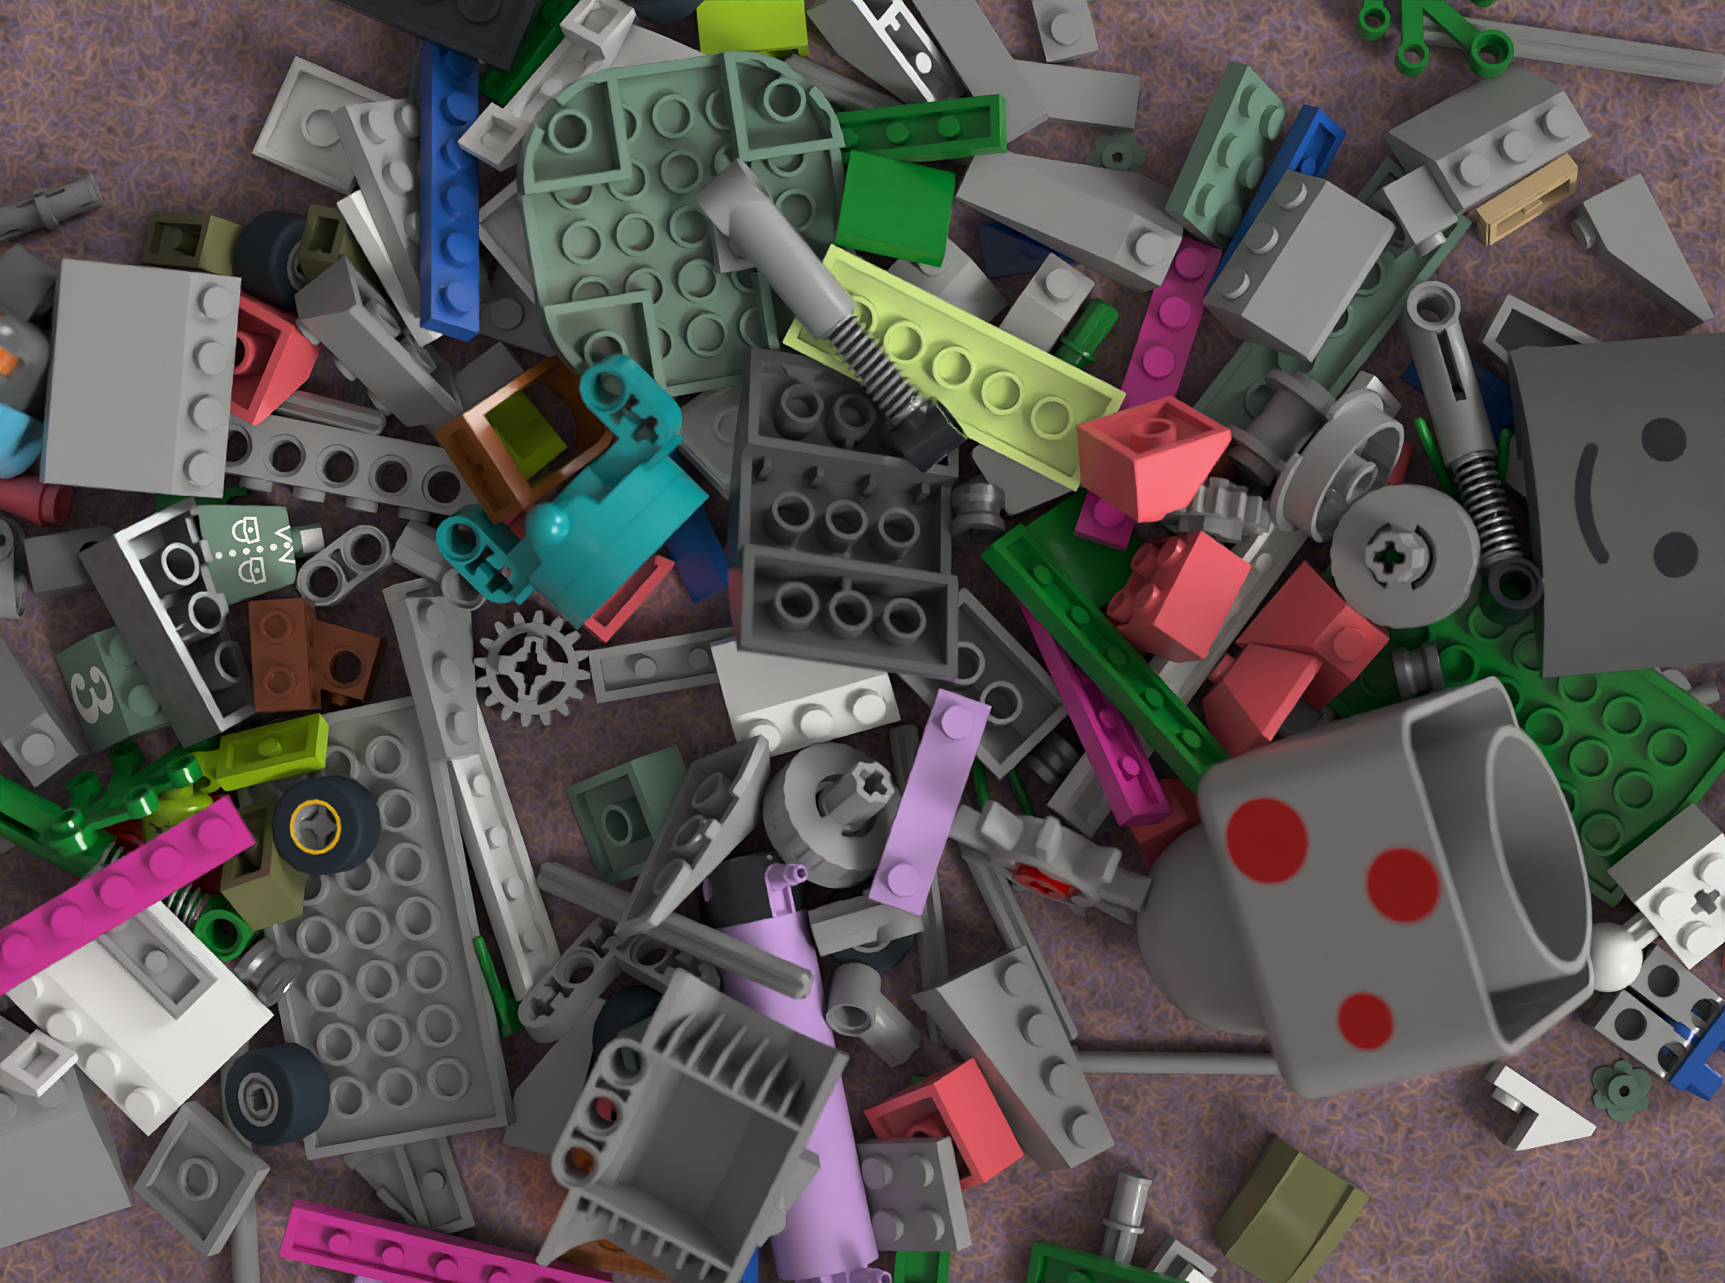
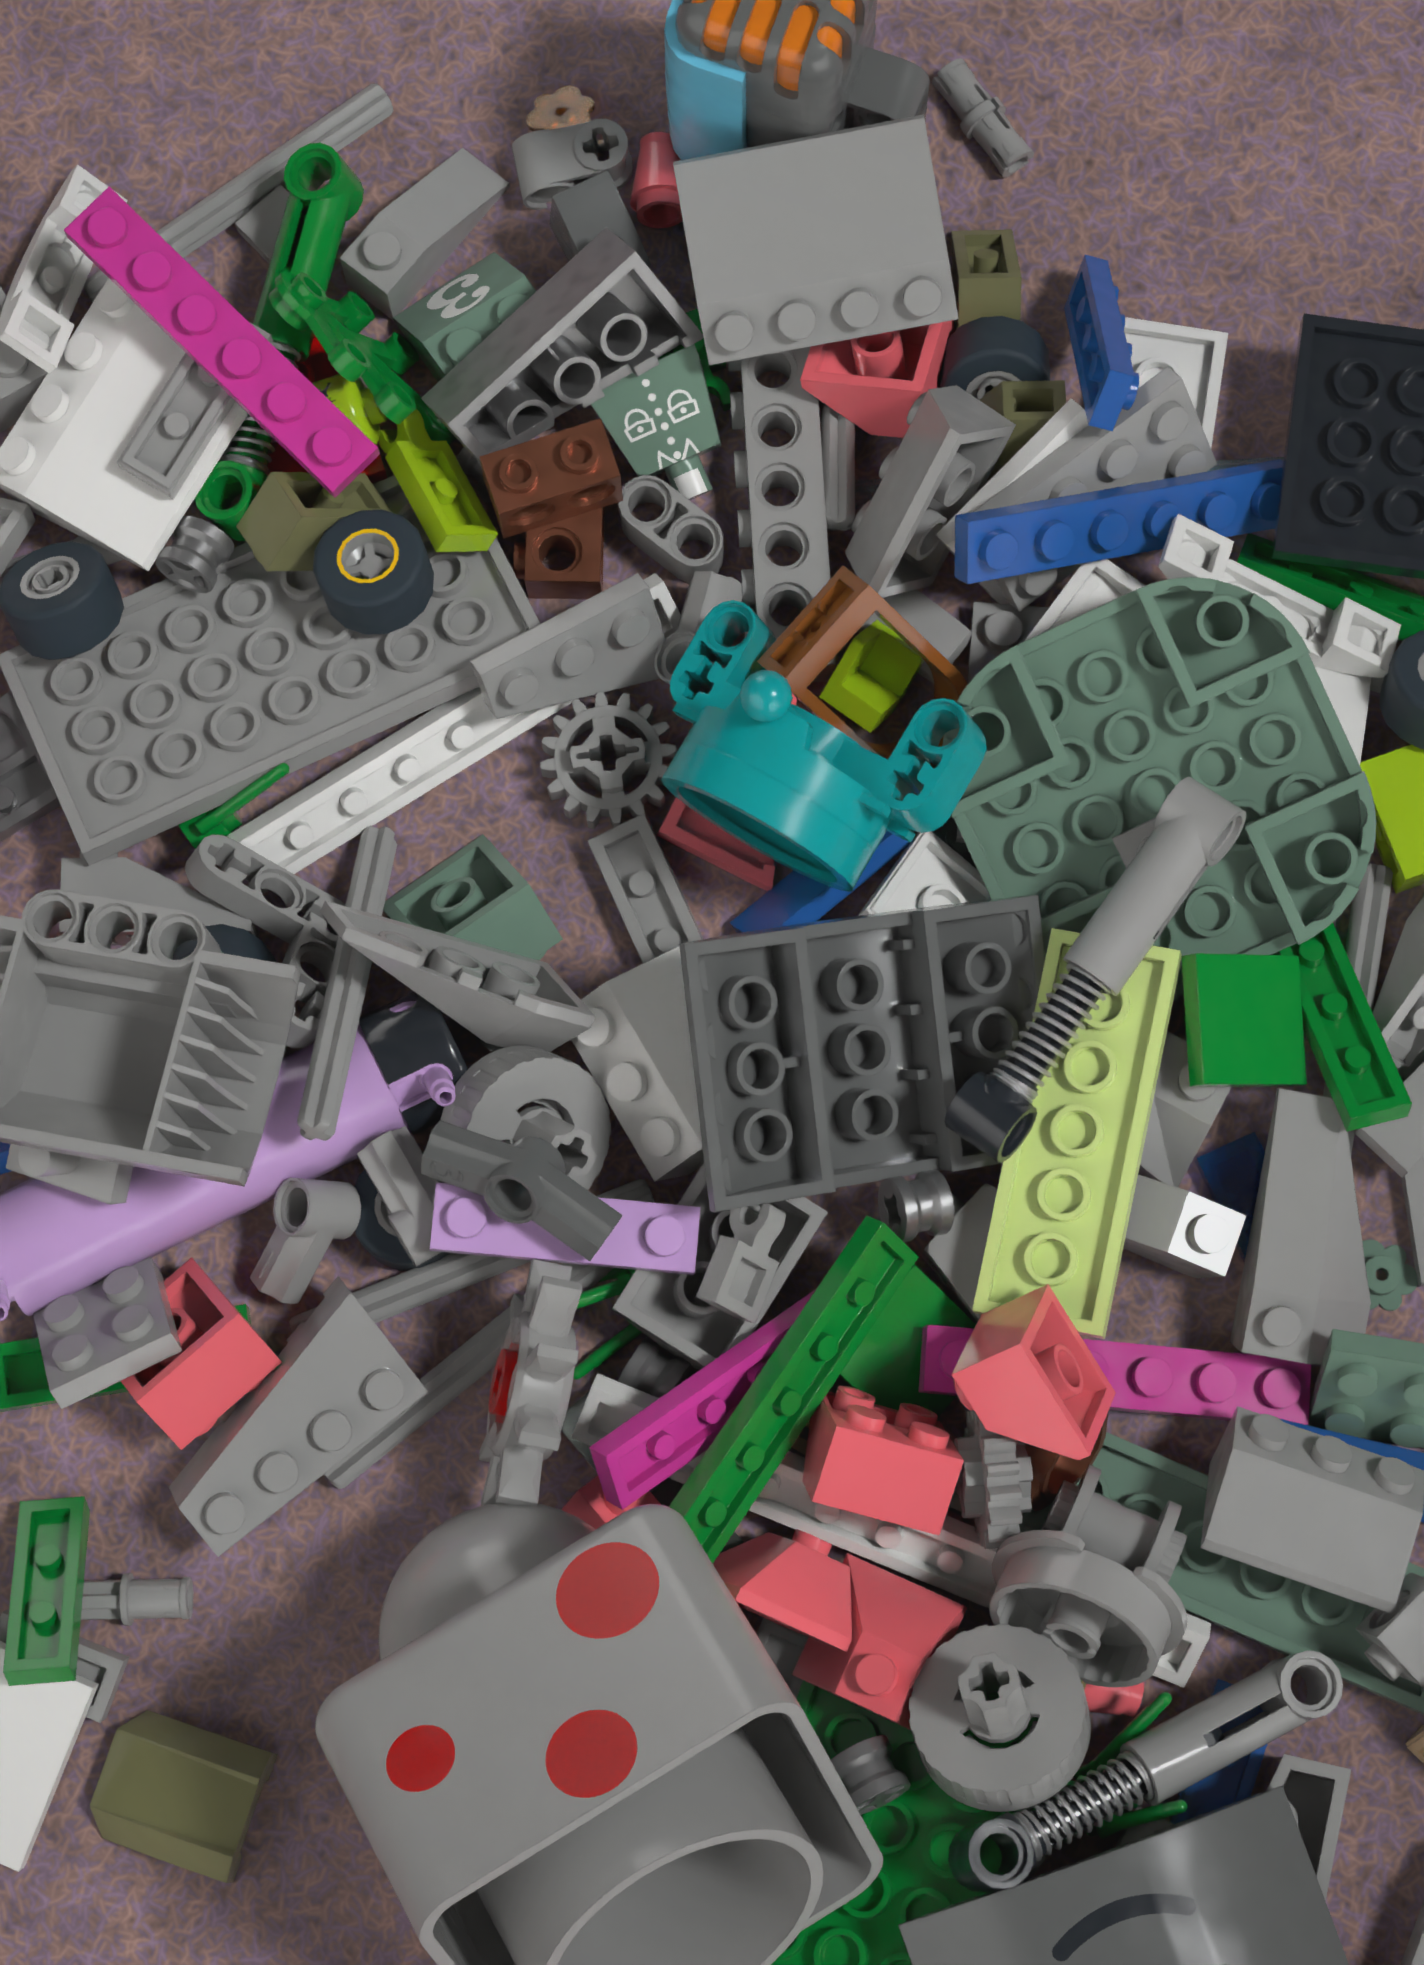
camera: 80 degrees right, 10 degrees down
(289, 165) = (1100, 344): none -> blue plate
(891, 828) = (521, 1184): none -> dark grey piece
(998, 666) = (741, 1265): none -> light grey plate
(1087, 334) = (1161, 1289): green axle -> none
(1176, 1062) = (326, 1582): light grey bar -> none

